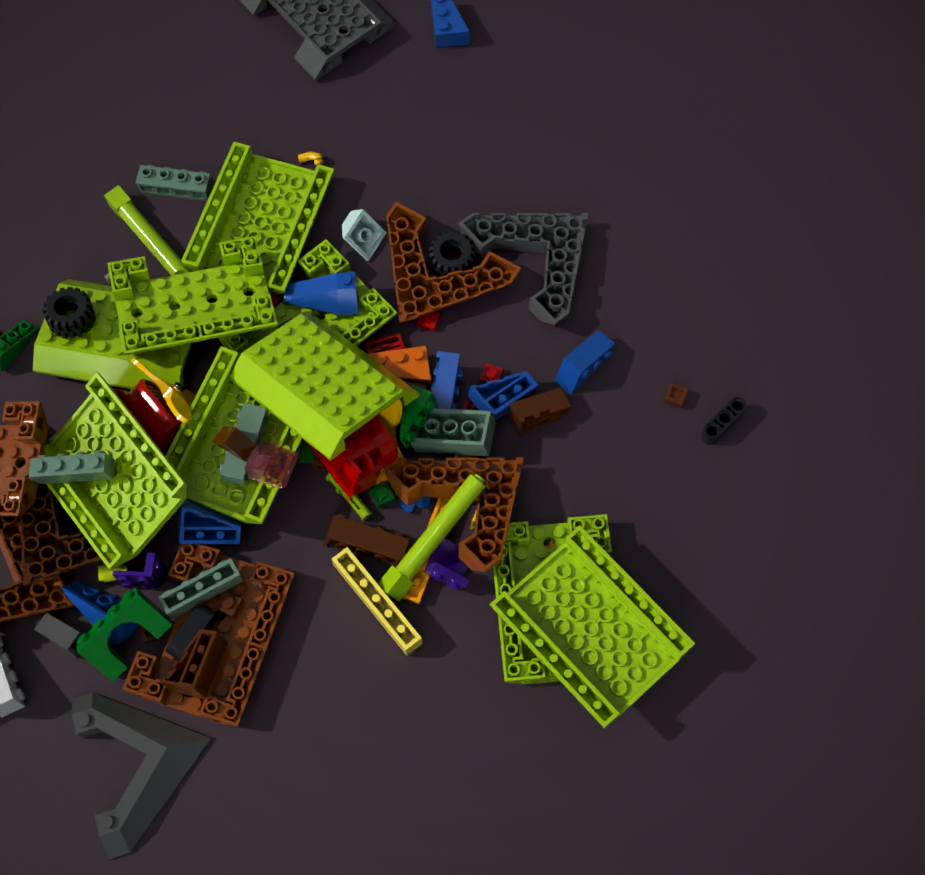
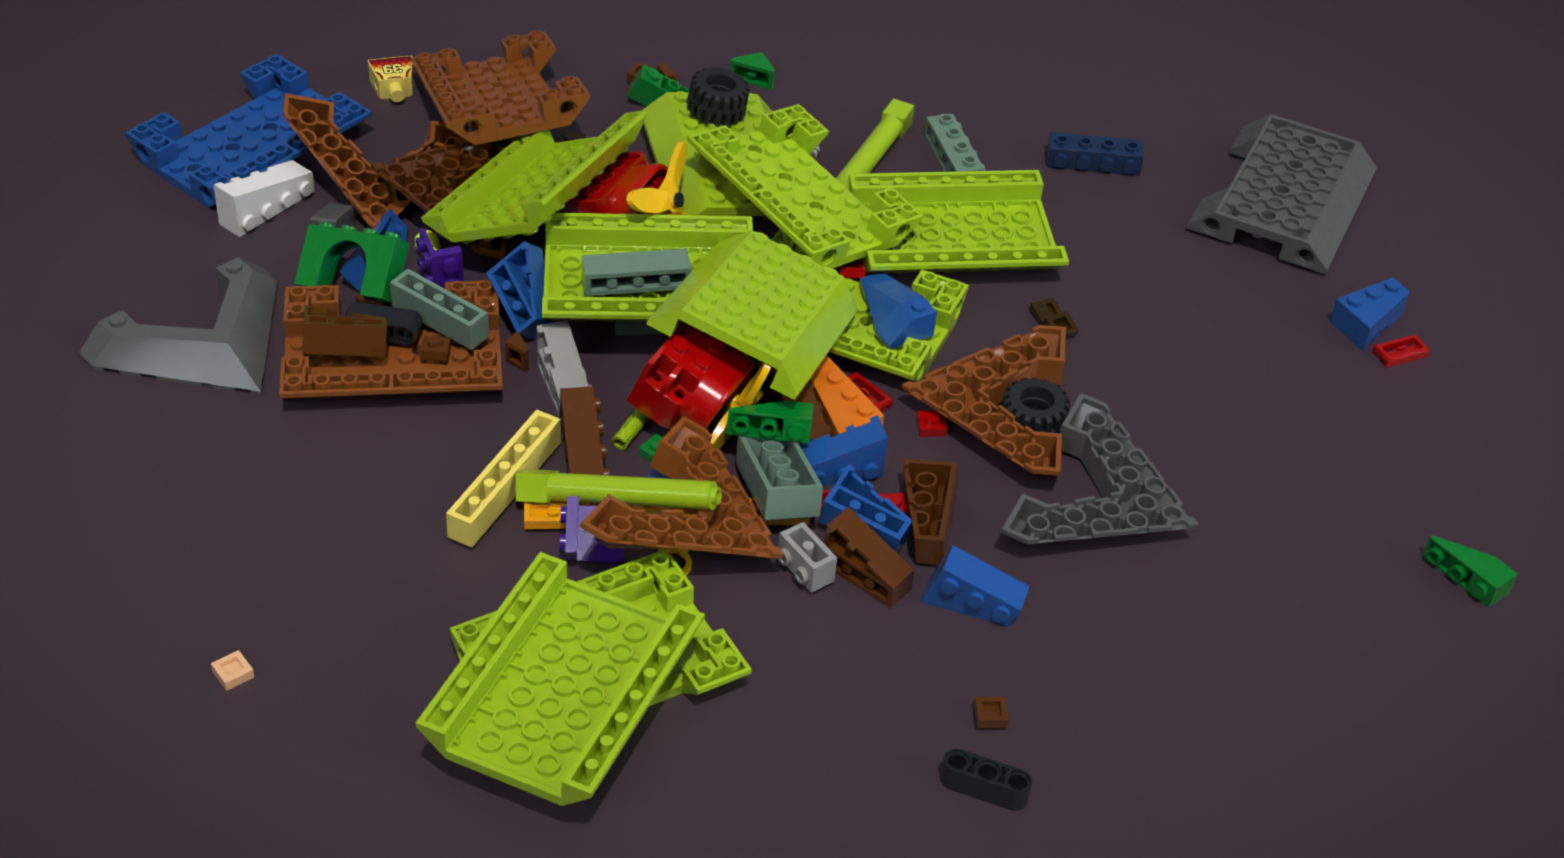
camera: 60 degrees right, 25 degrees down
(15, 271) = (754, 69): none -> green slope
(72, 468) = (525, 145): sand green brick -> none
(219, 97) = (1094, 153): none -> dark blue brick
(234, 442) = (626, 251): reddish brown slope -> none
(253, 550) = (517, 352): none -> reddish brown slope
(271, 464) = (620, 292): slope -> none
(291, 528) = (559, 359): none -> light grey wedge
(308, 156) = (1079, 253): yellow arm -> none
(362, 233) = (1001, 319): light aqua slope -> none
(370, 203) = (1048, 313): none -> dark brown slope
(470, 828) = (232, 670): none -> light nougat tile
(481, 35) = (1403, 353): none -> red tile
(508, 353) = (930, 502): none -> reddish brown wedge
(522, 444) = (807, 557): none -> light grey brick
(674, 89) = (1473, 570): none -> green slope

